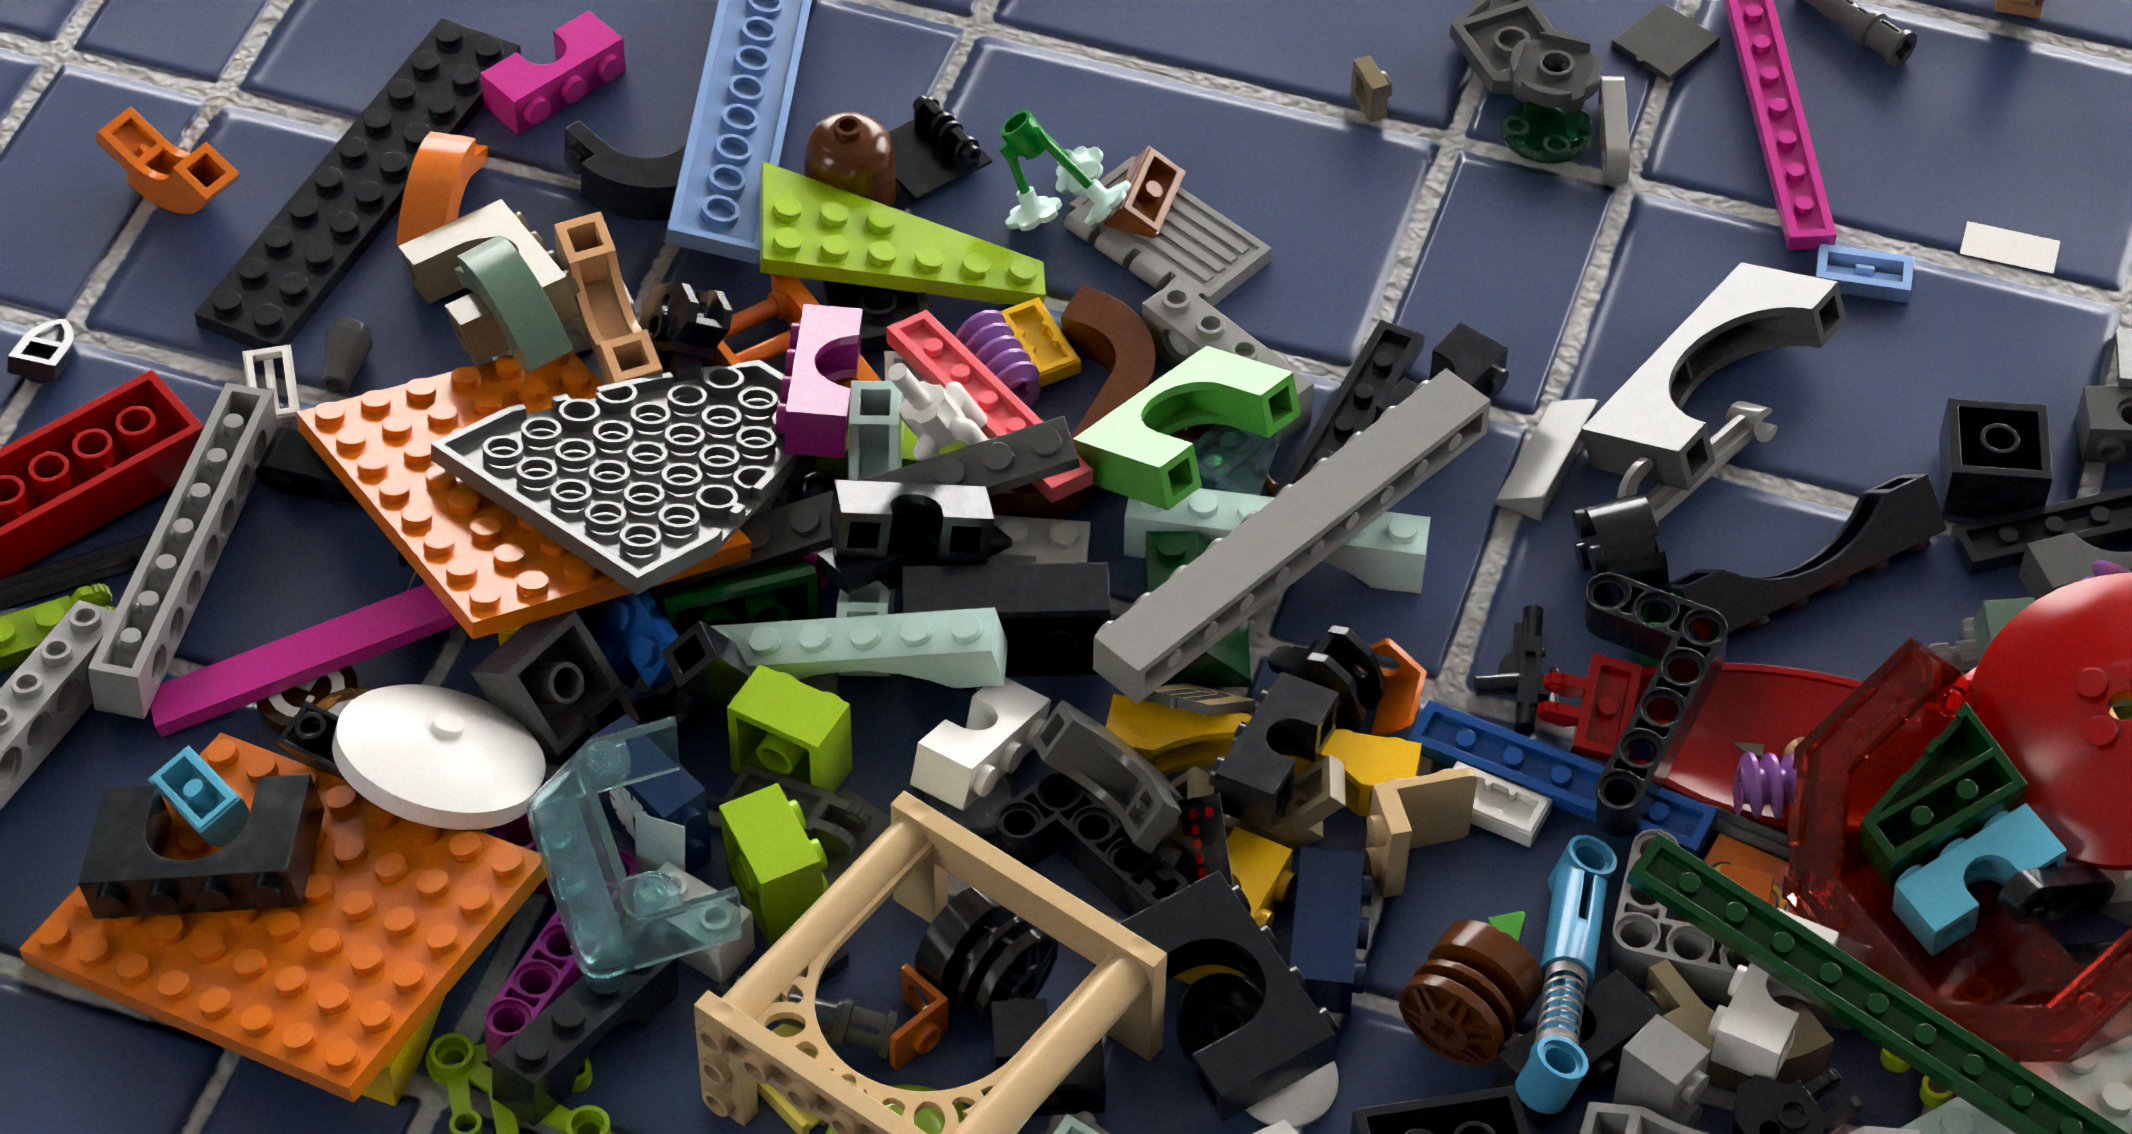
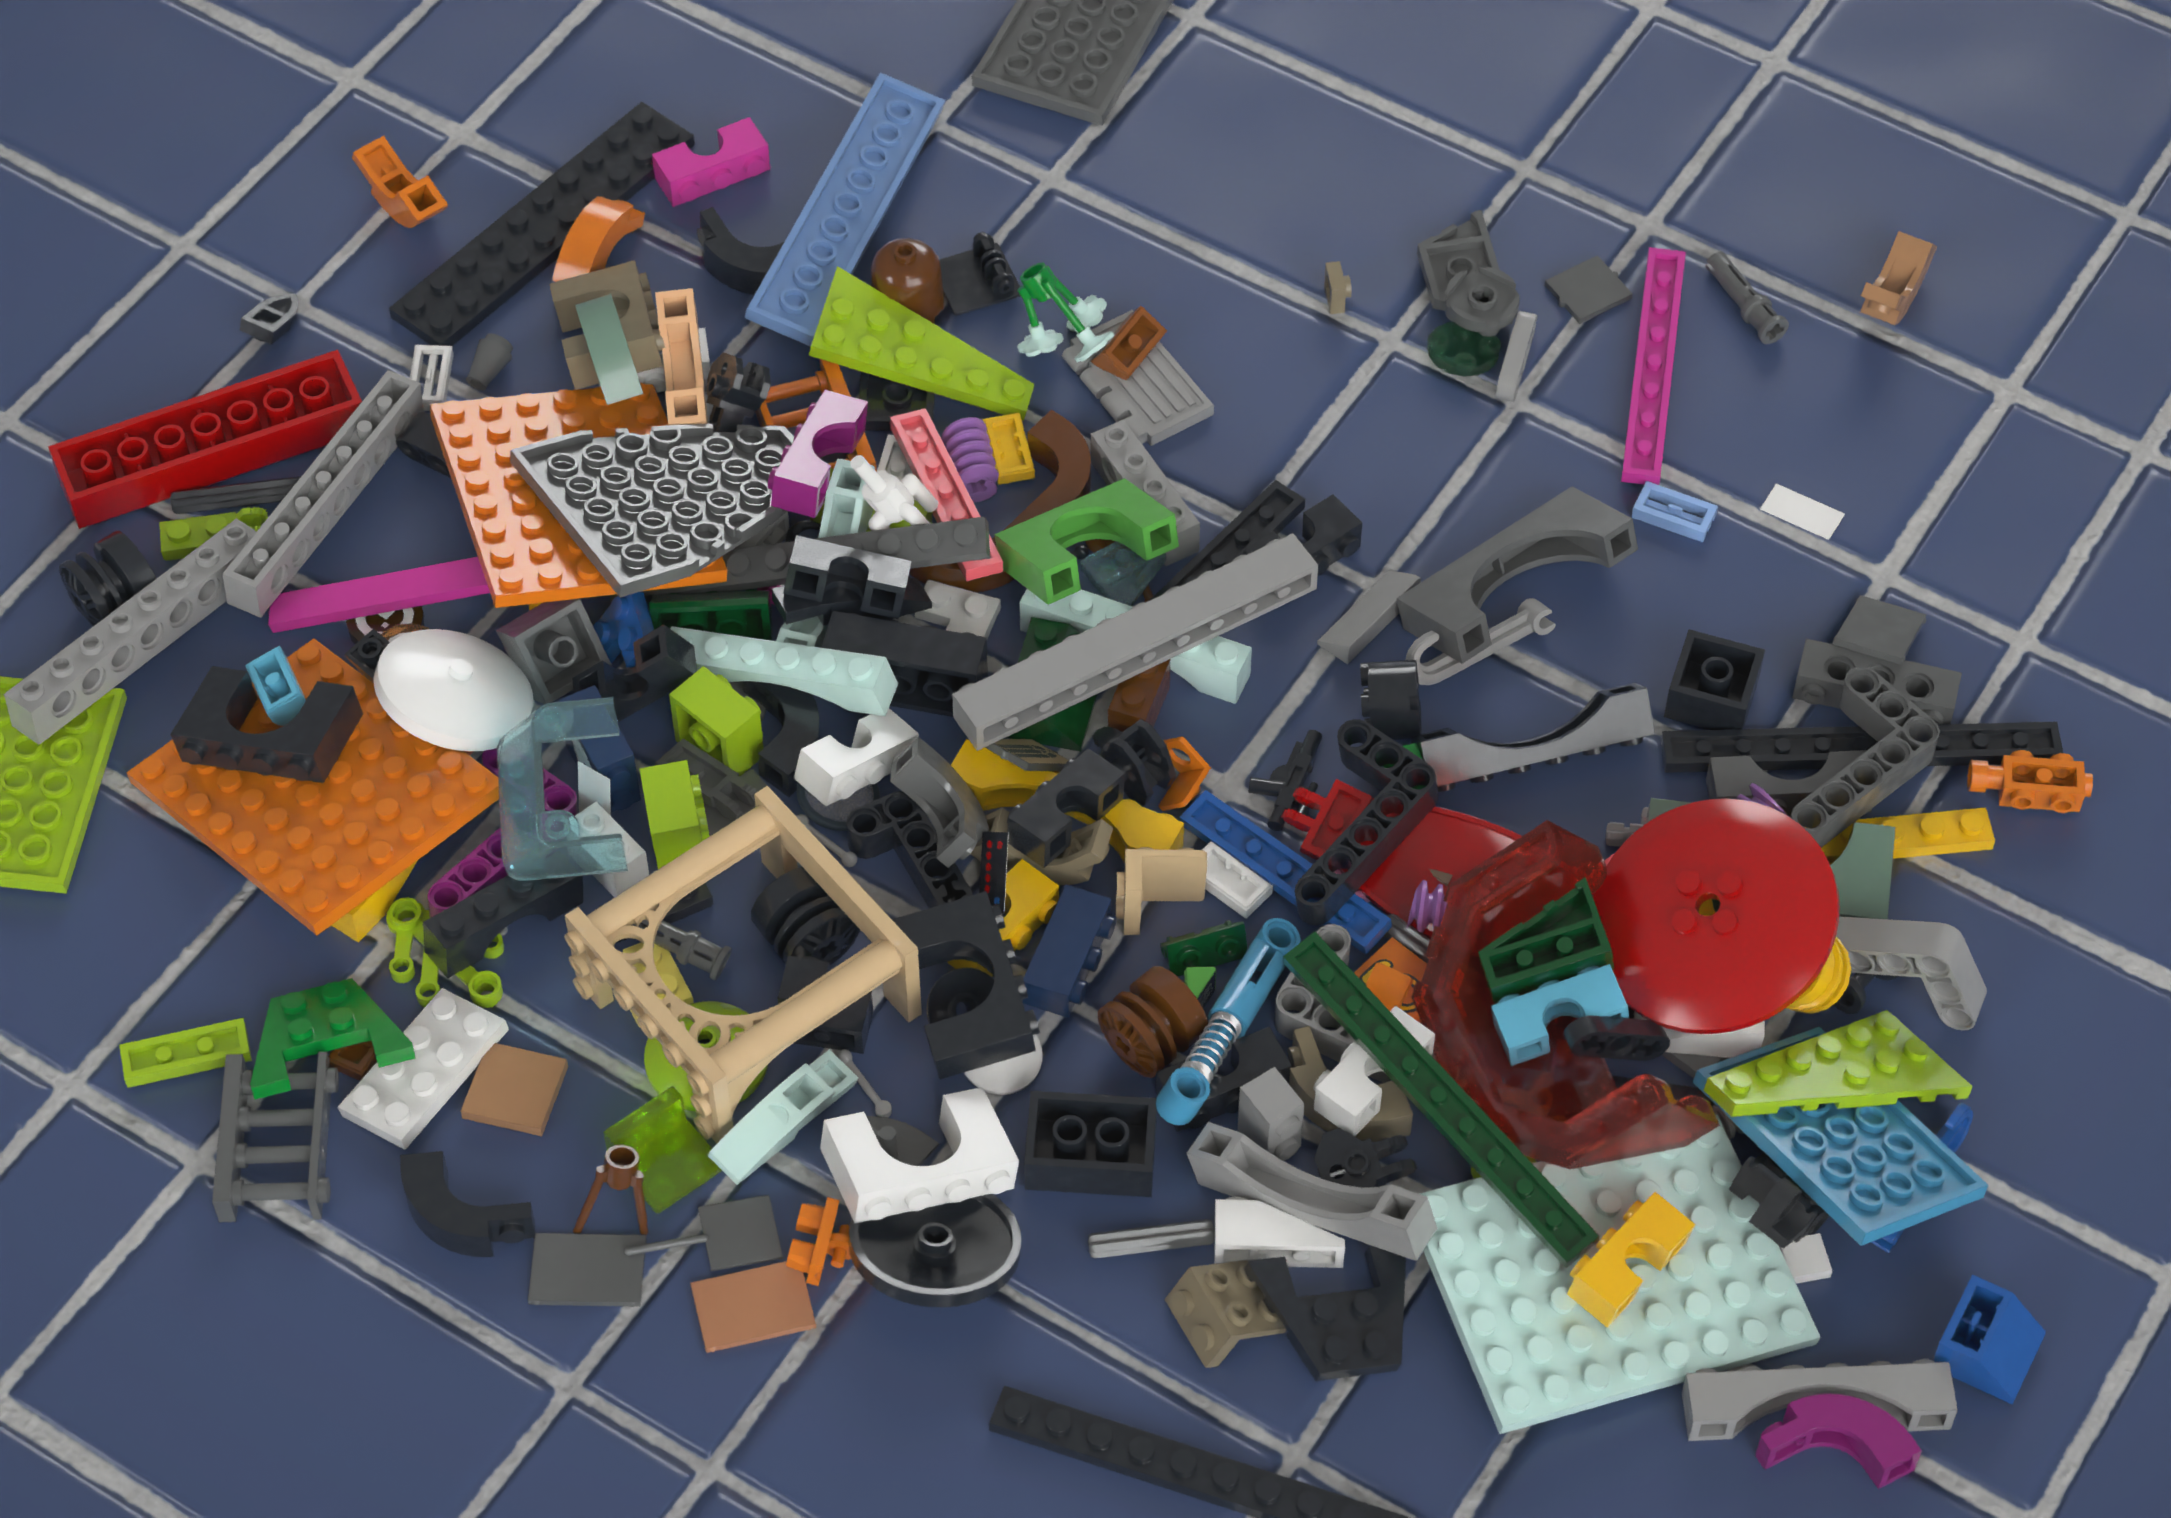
camera: 15 degrees right, 5 degrees up
(891, 718) = (800, 728): none -> black arch
(925, 1028) = (748, 964): orange bracket -> none
(1308, 606) = (1140, 697): none -> reddish brown brick
(1499, 890) = (1206, 949): none -> dark green hinge

